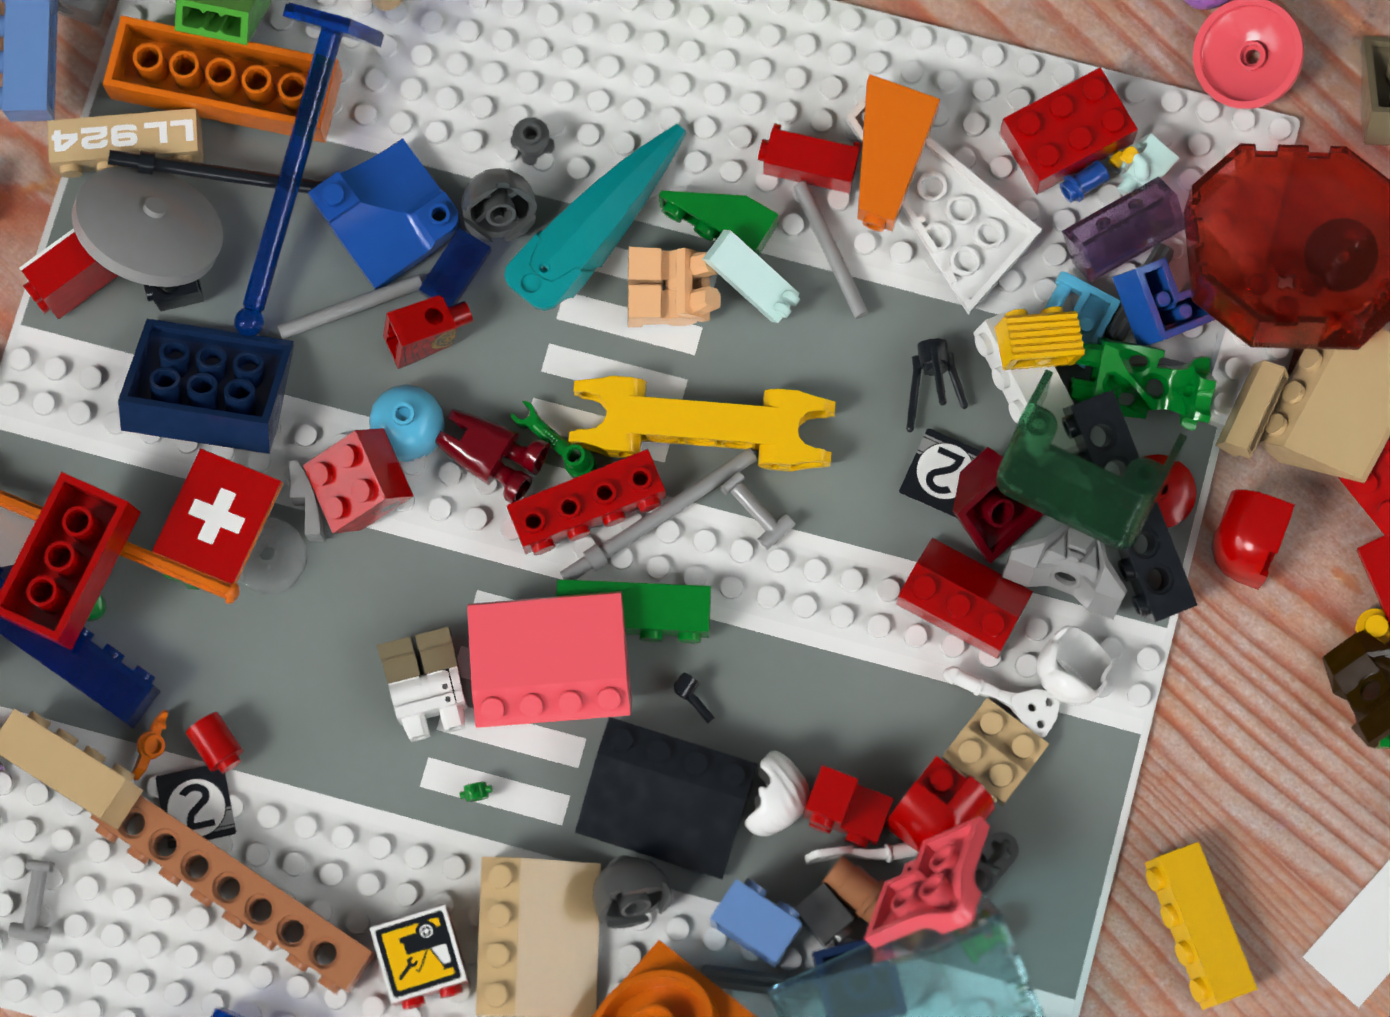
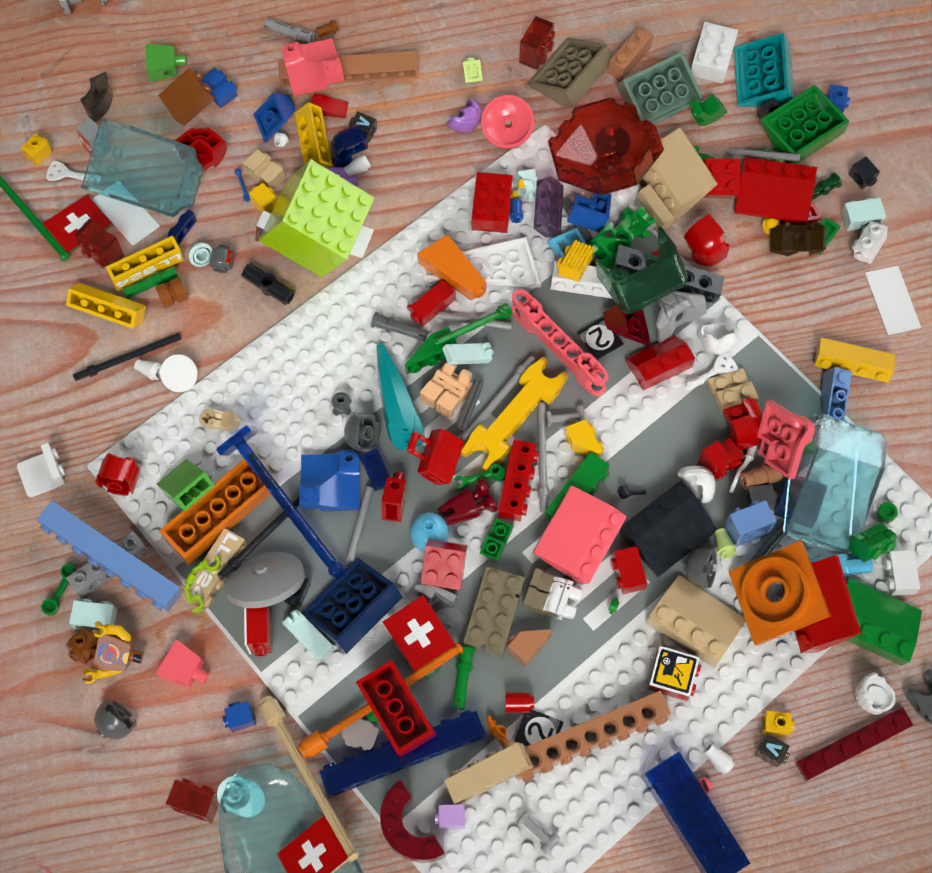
camera: 60 degrees left, 10 degrees down
(78, 117) = (190, 580): none -> lime piece
(116, 350) = (307, 635): none -> light aqua hinge
(217, 623) = (463, 666): none -> green pin
(316, 697) = (527, 644): none -> nougat slope
(335, 610) = (494, 612): none -> dark tan piece
(465, 536) = (496, 539): none -> green slope
(537, 352) = (439, 456): none -> red piece
(546, 777) = (629, 570): none -> red brick
(671, 341) = (469, 405): none -> dark grey axle
(697, 907) = (725, 545): none -> yellowish green cone
(717, 379) = (498, 398): none -> light grey bar
(725, 121) = (389, 325): none -> dark grey pin
(730, 559) = (582, 438): none -> yellow slope
(873, 283) = (502, 312): none -> green piece
(883, 353) = (583, 366): none -> coral piece
(935, 361) = (552, 310): black plant -> none
(1103, 932) = (835, 392): none -> medium blue slope

